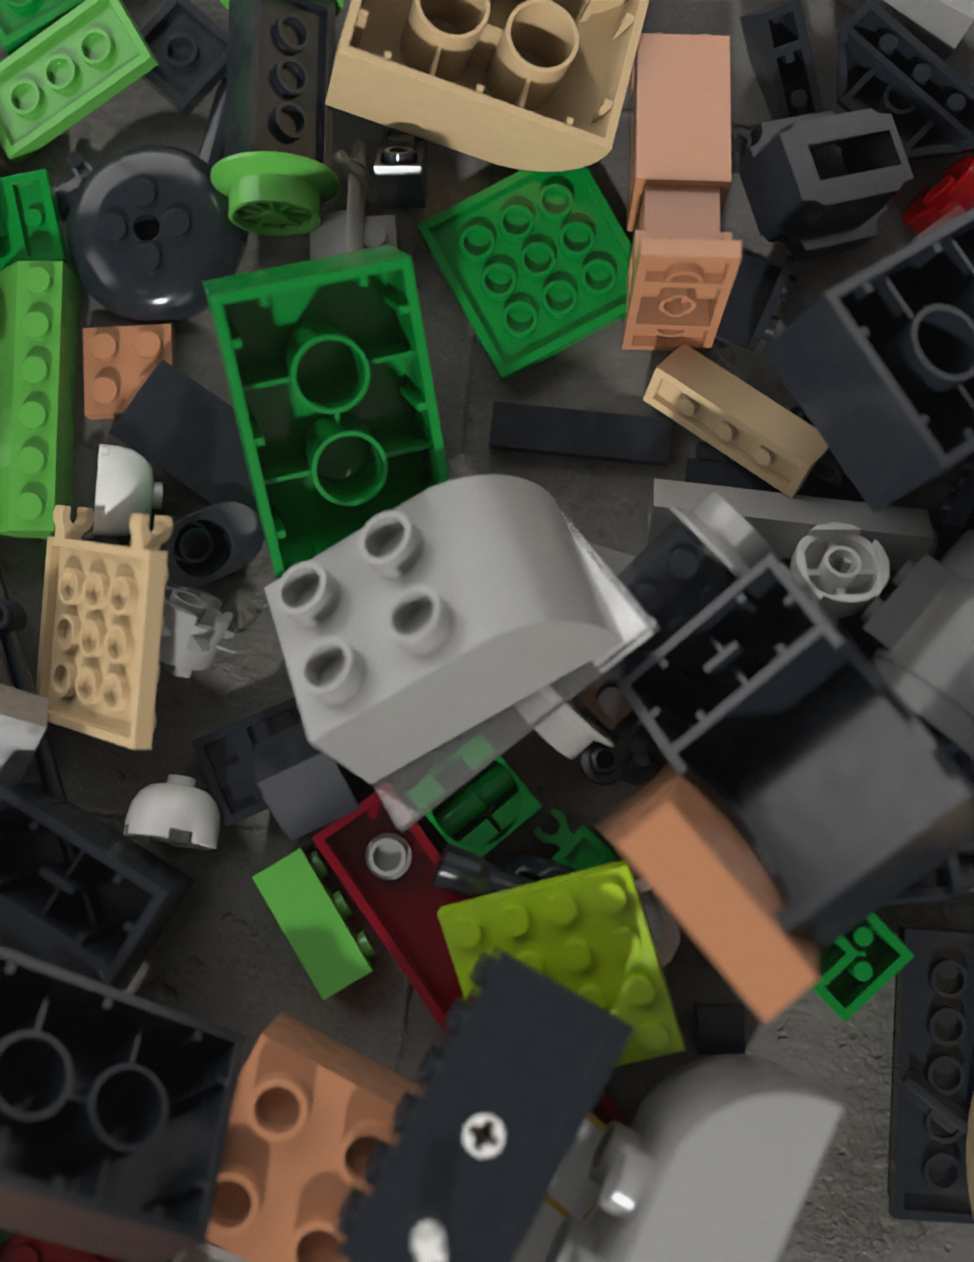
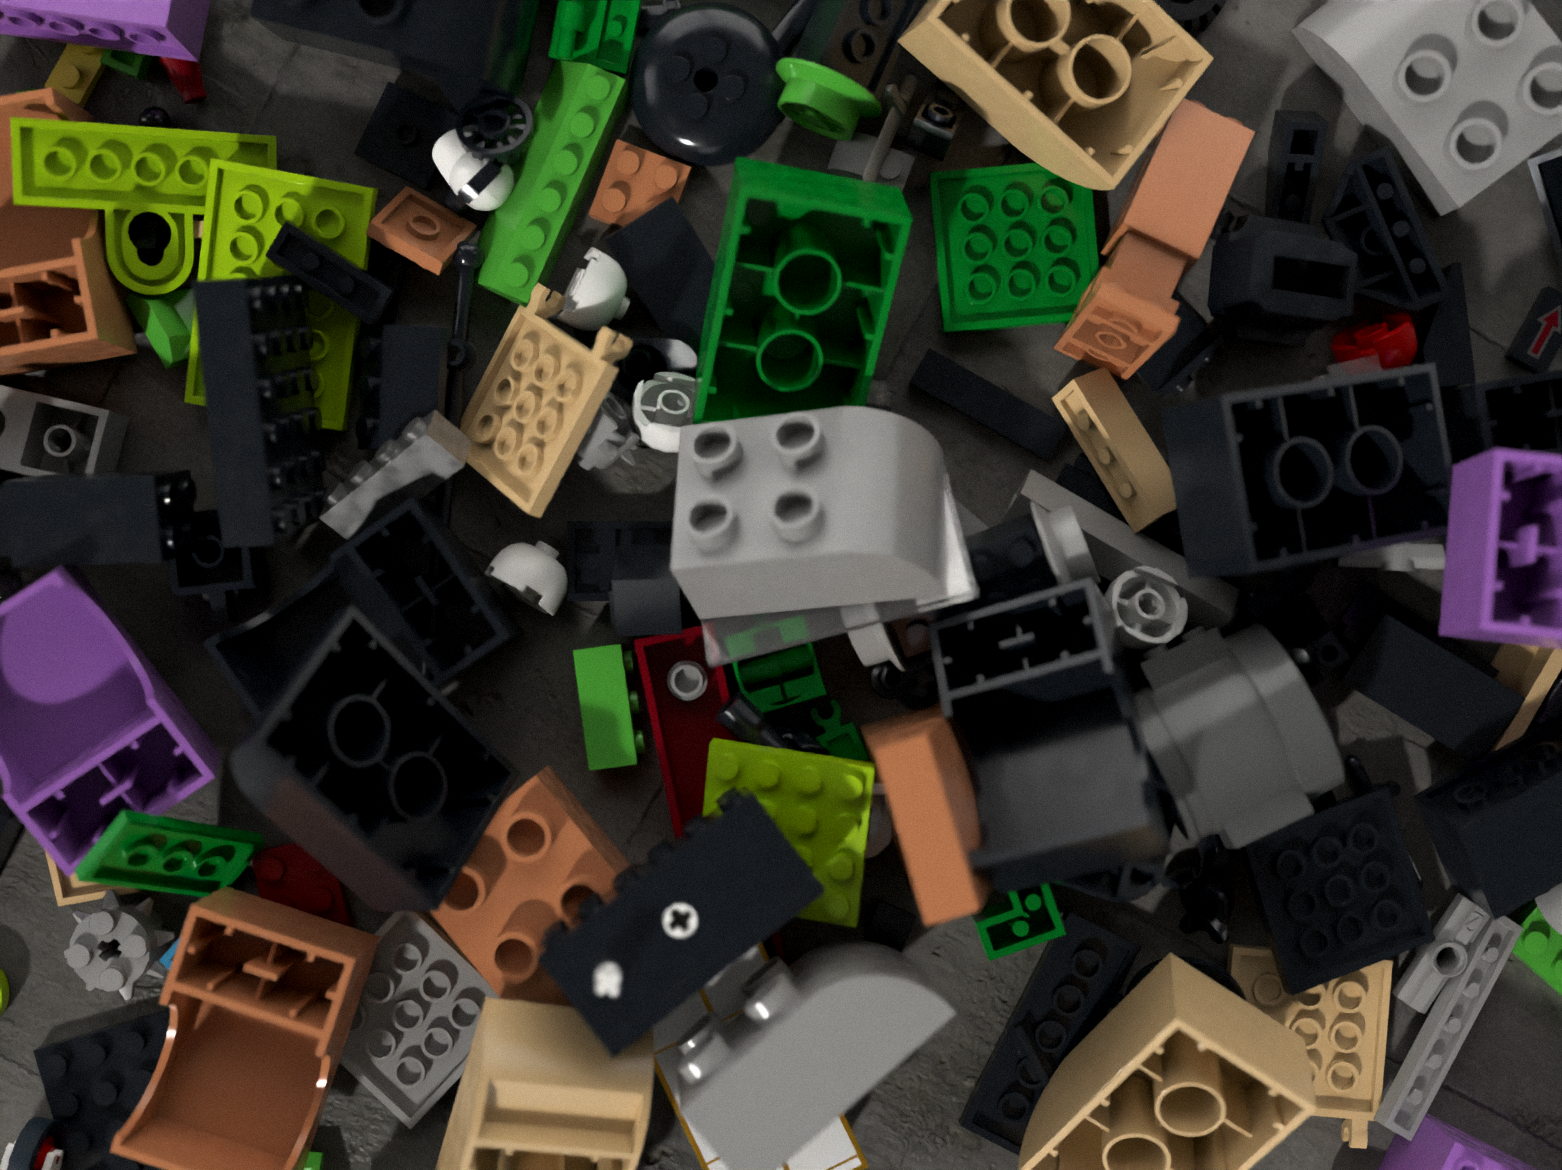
camera: 15 degrees right, 5 degrees up
(238, 580) = (661, 409): none -> white cylinder

